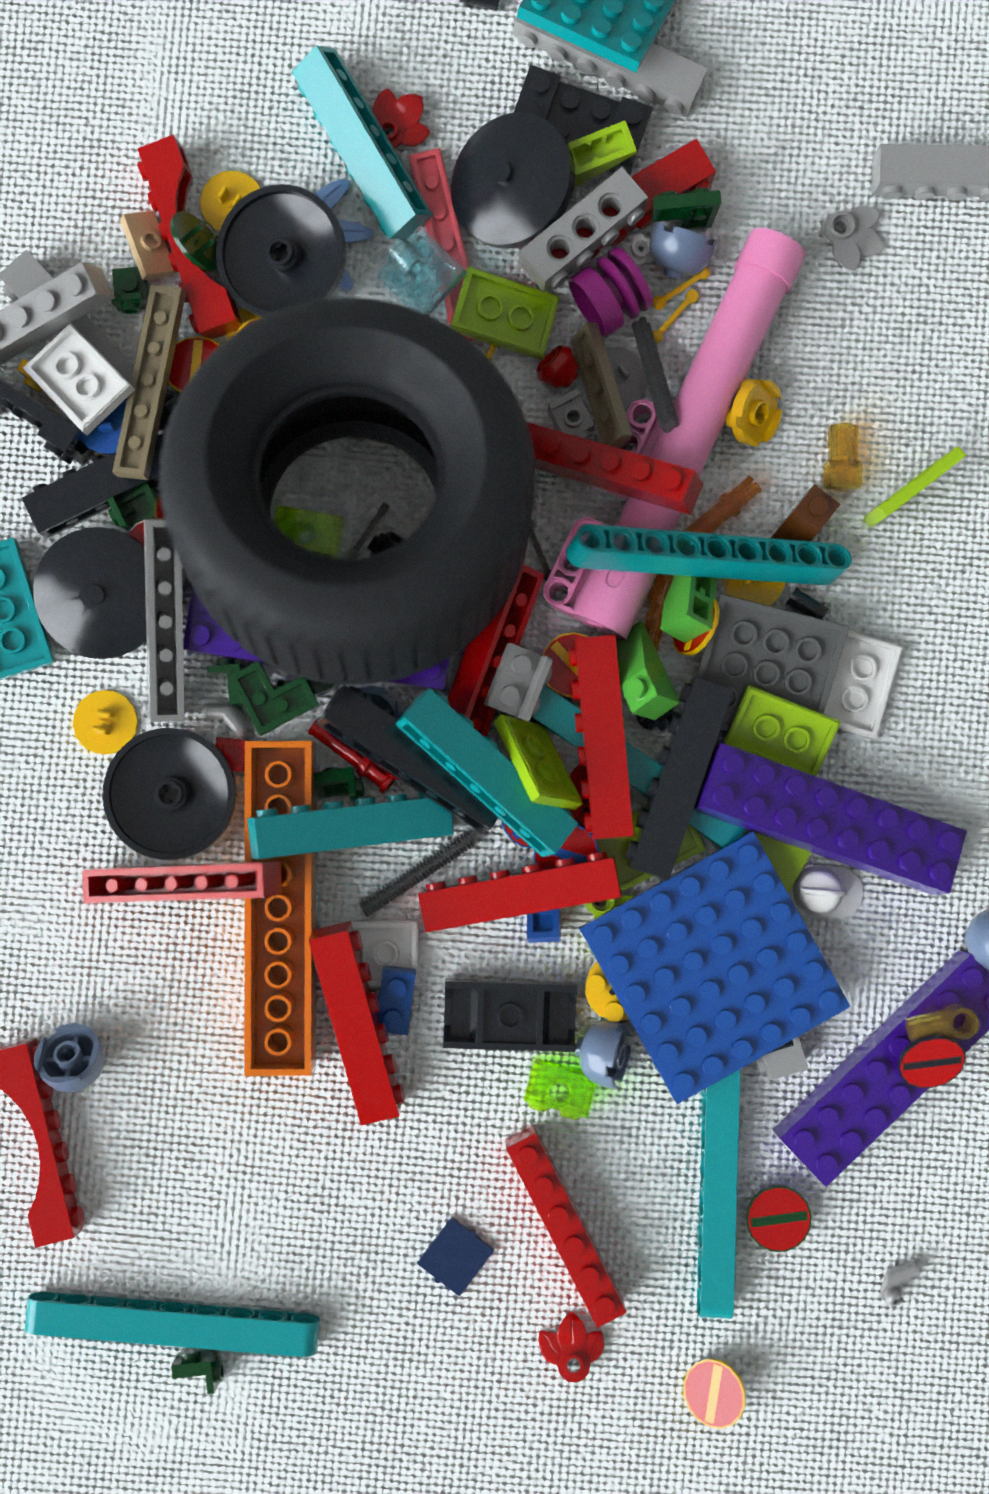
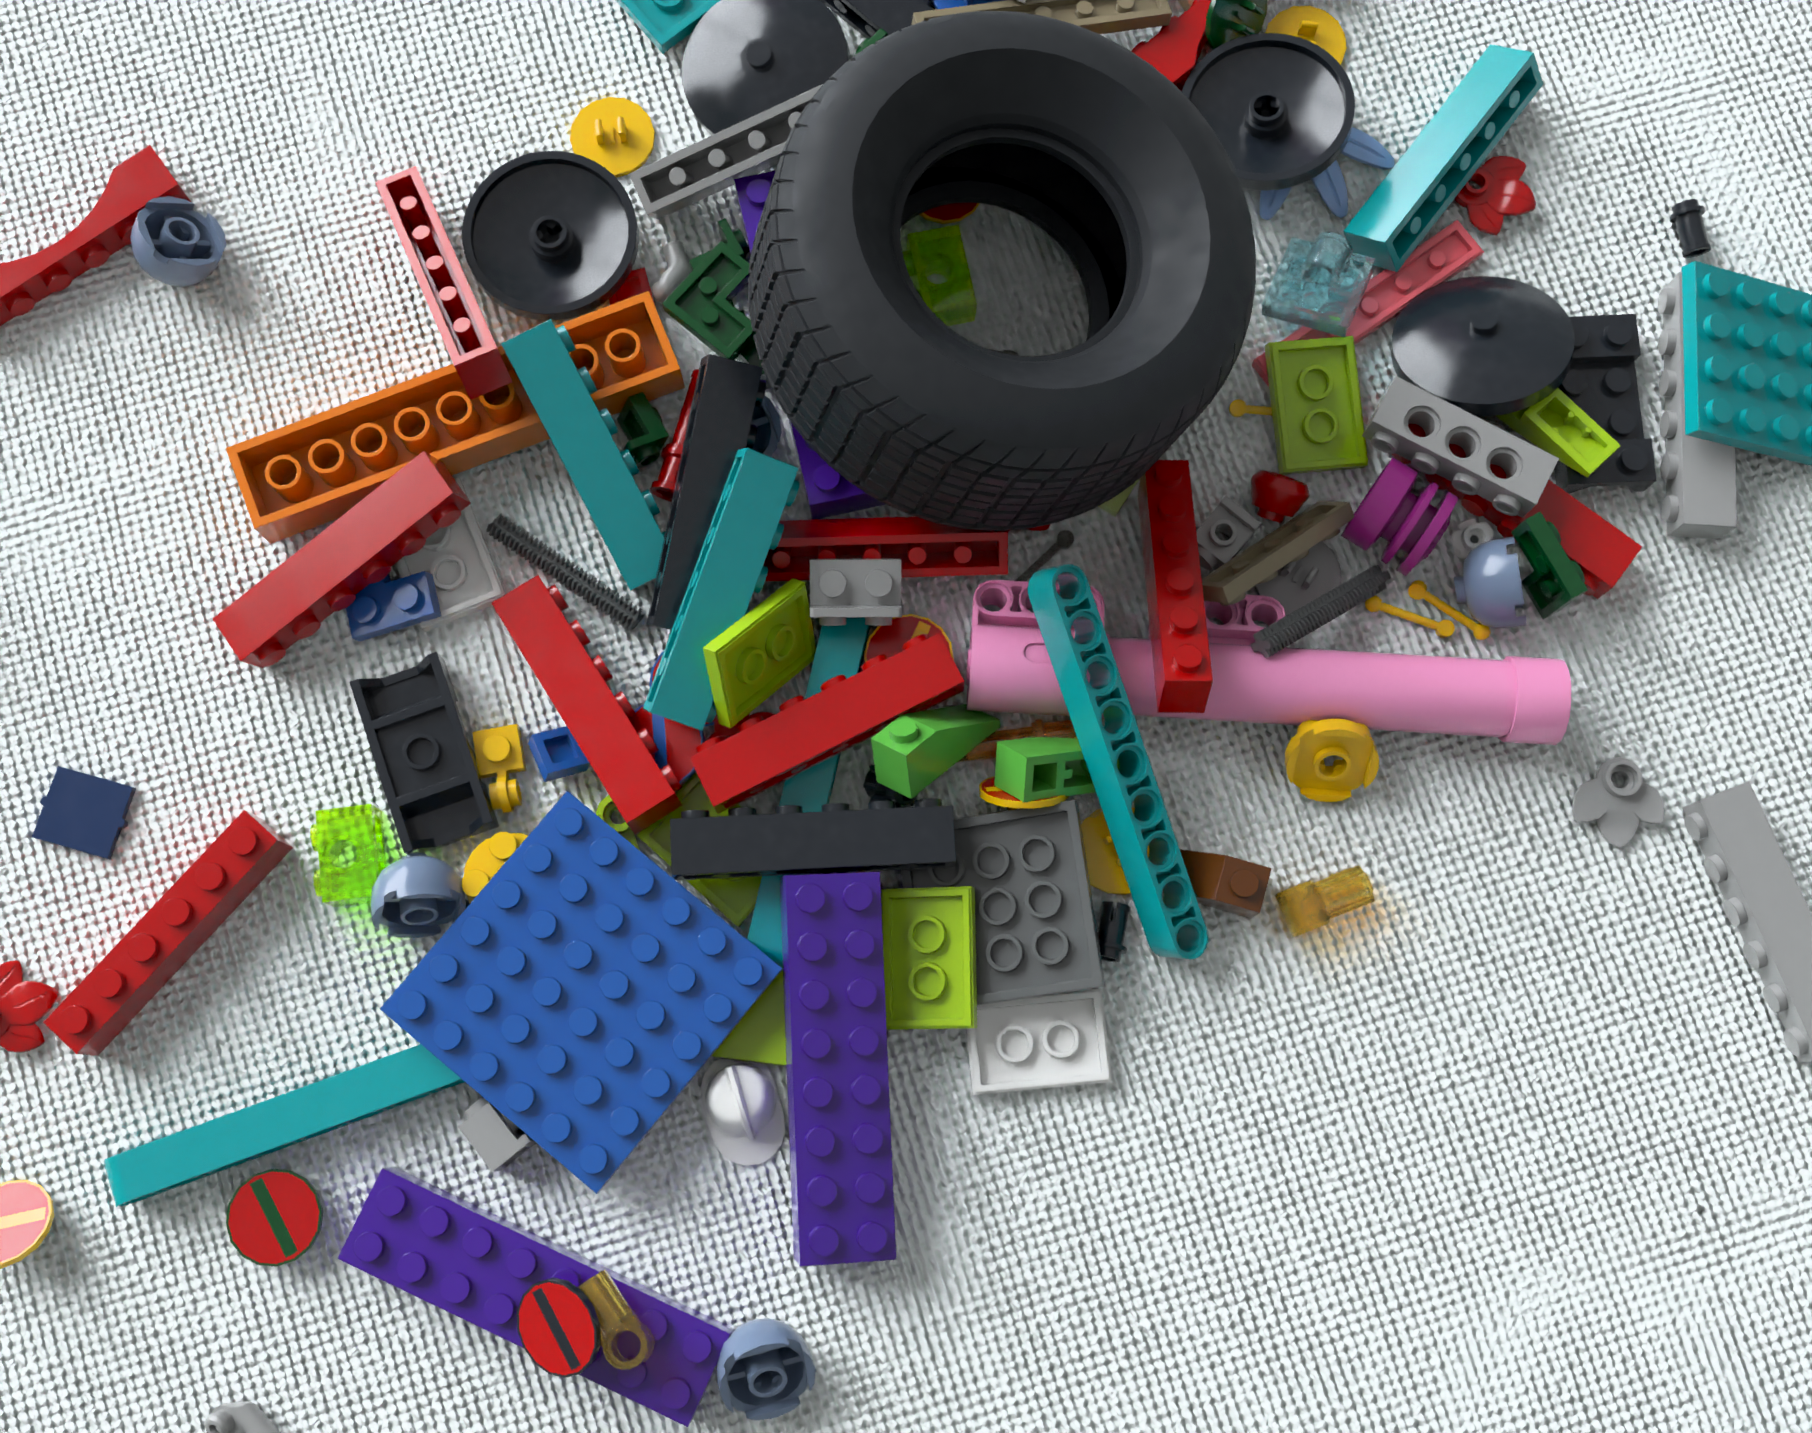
camera: 70 degrees right, 10 degrees down
(526, 964) = (498, 754): none -> yellow plate
(726, 507) = (1194, 775): clear orange pin -> none
(914, 486) = (1326, 1003): lime tile -> none

